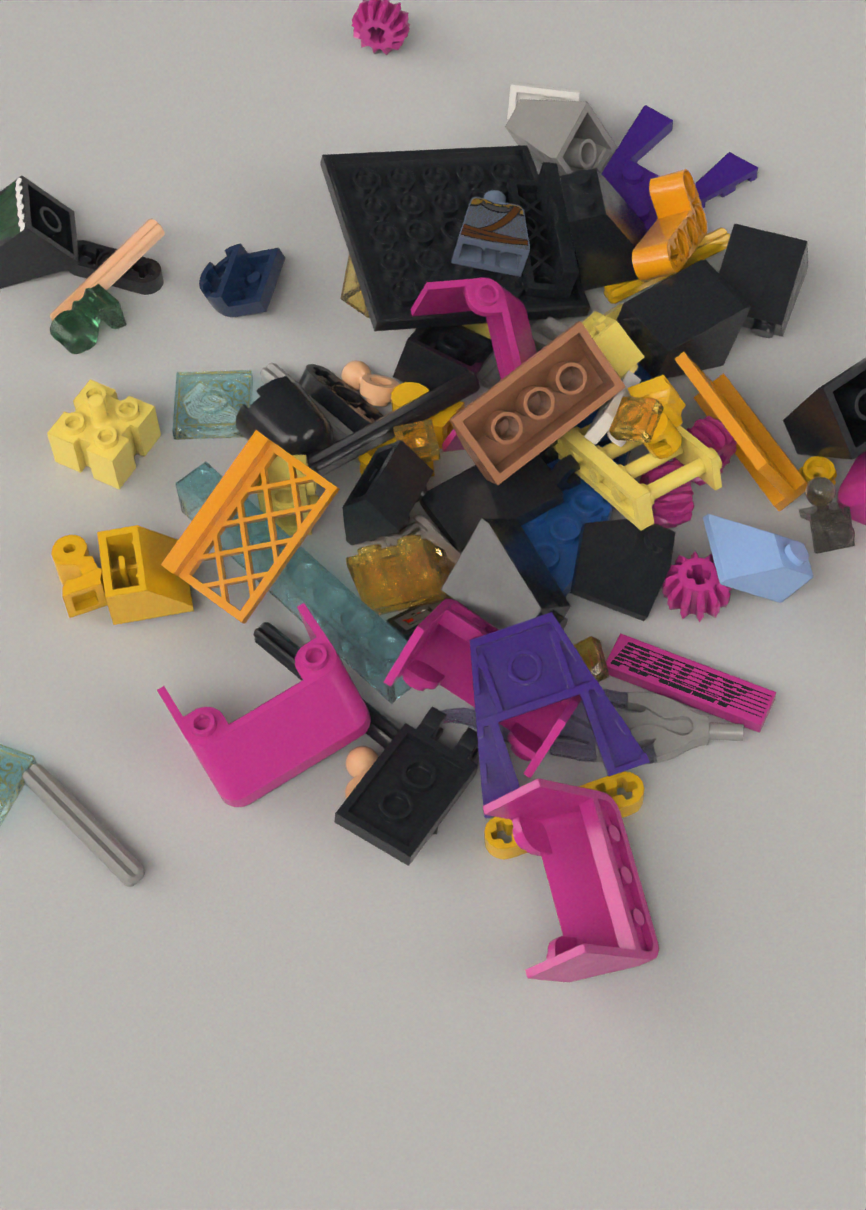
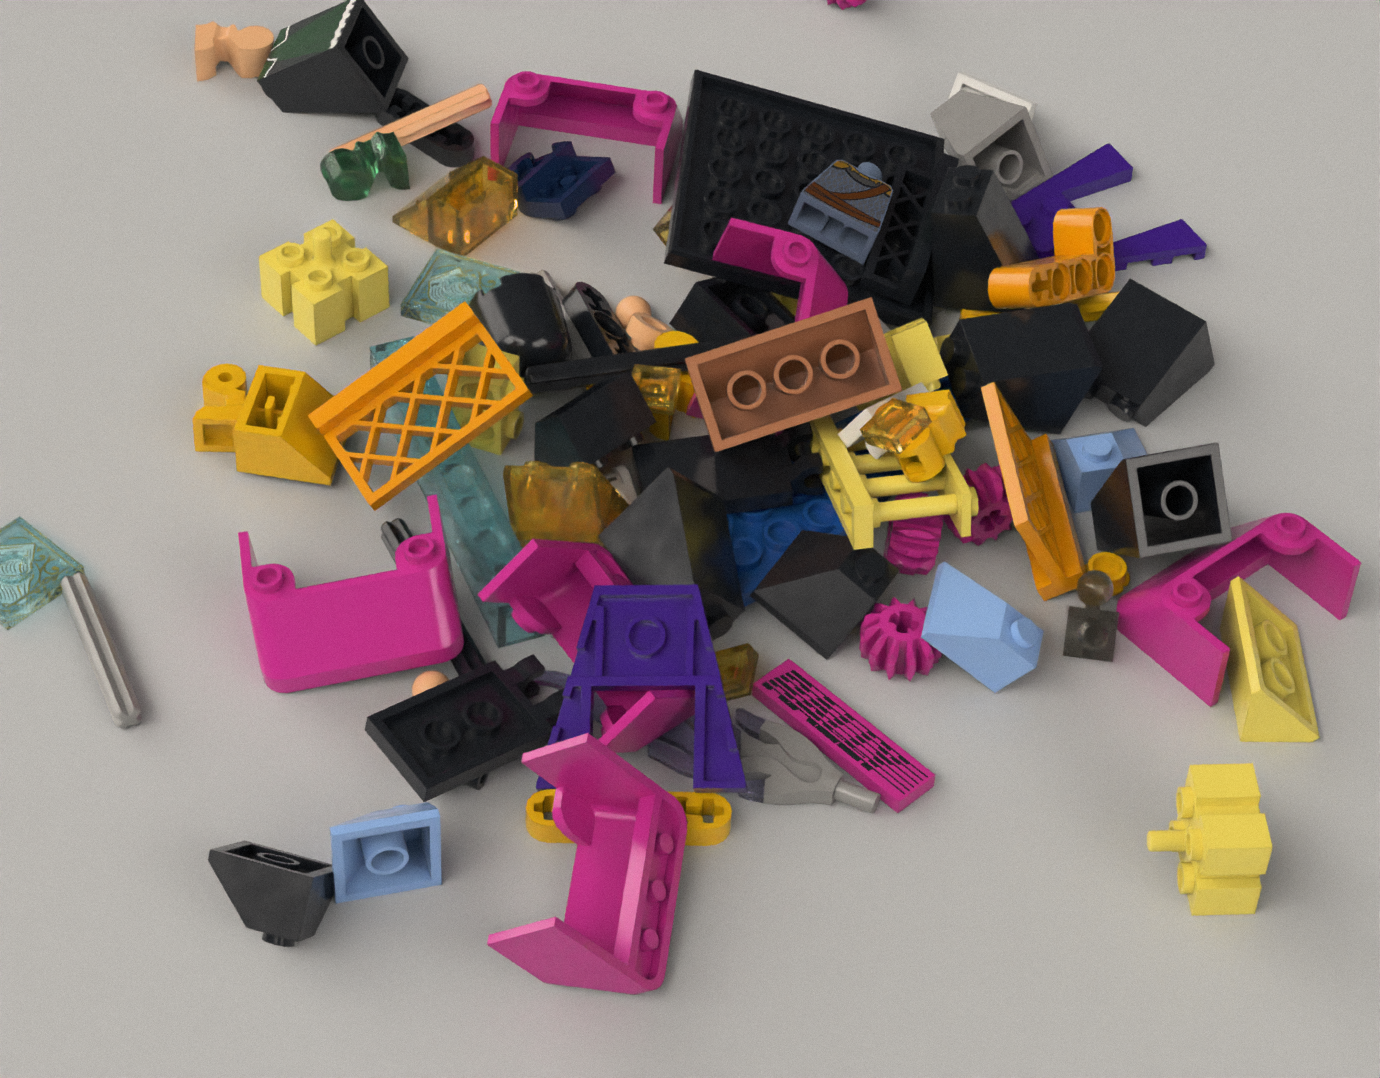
camera: 15 degrees right, 10 degrees down
(180, 329) = (463, 206): none -> clear yellow slope
(245, 211) = (589, 111): none -> dark pink windscreen
(327, 984) = (274, 890): none -> black slope
(404, 916) = (386, 852): none -> light blue slope
(772, 383) = (1090, 460): none -> light blue slope

